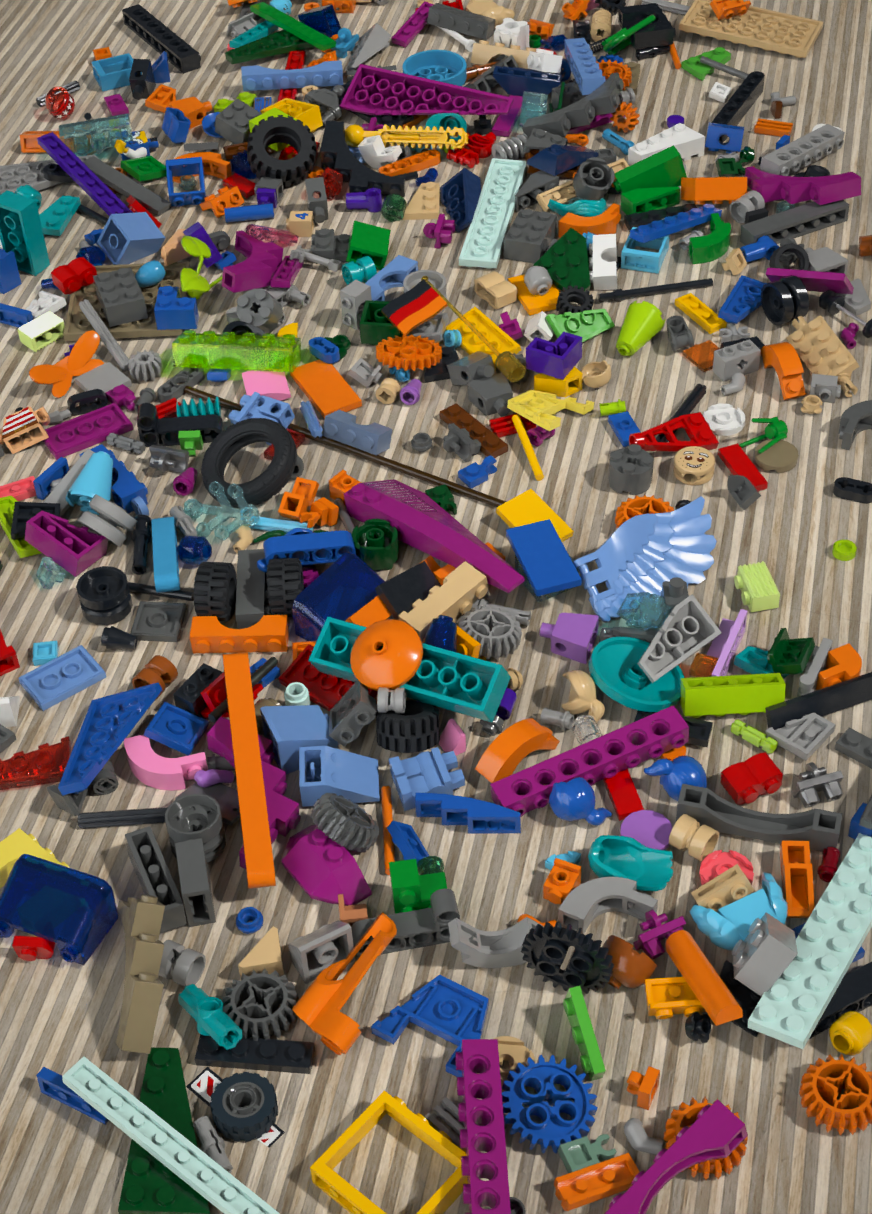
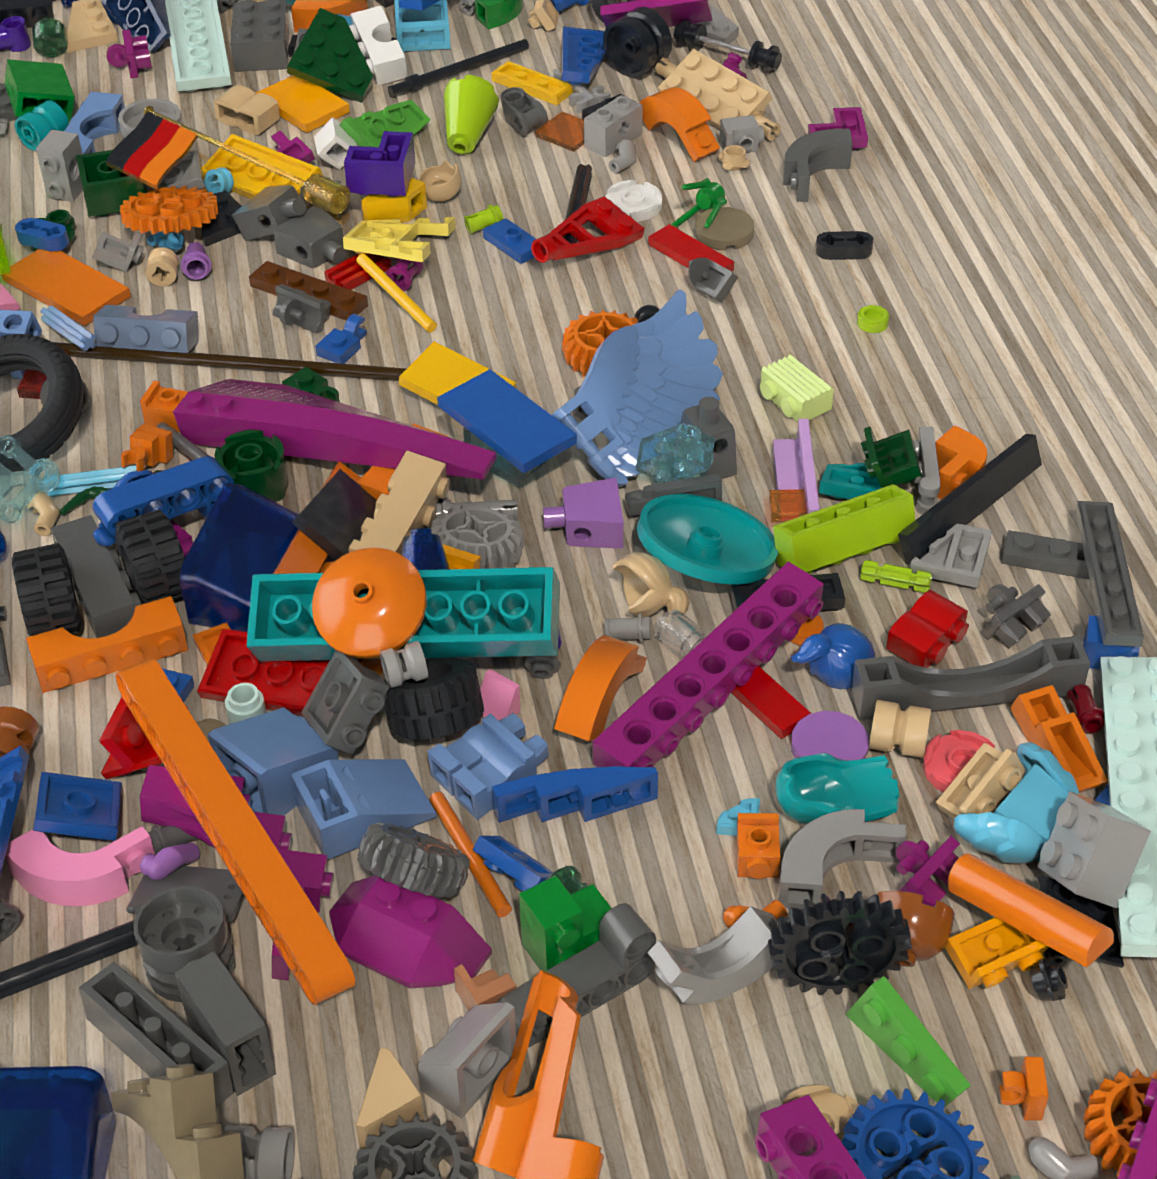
camera: 25 degrees left, 0 degrees up
(189, 696) = (79, 746): black brick -> none
(249, 914) = (328, 1043): blue plate -> none
(255, 678) = (144, 747): pearl dark grey bar -> none
(299, 499) = (107, 436): orange brick -> none
(421, 442) = (243, 321): dark grey plate -> none
(441, 1009) = (692, 1083): blue wing -> none
(538, 280) = (302, 84): light grey head -> none
(574, 295) = (360, 92): black tyre -> none
(576, 801) = (720, 730): blue hair -> none
(630, 470) = (552, 287): dark grey brick -> none
(680, 636) = (743, 476): light grey wedge -> none
(694, 465) = (629, 263): tan head -> none

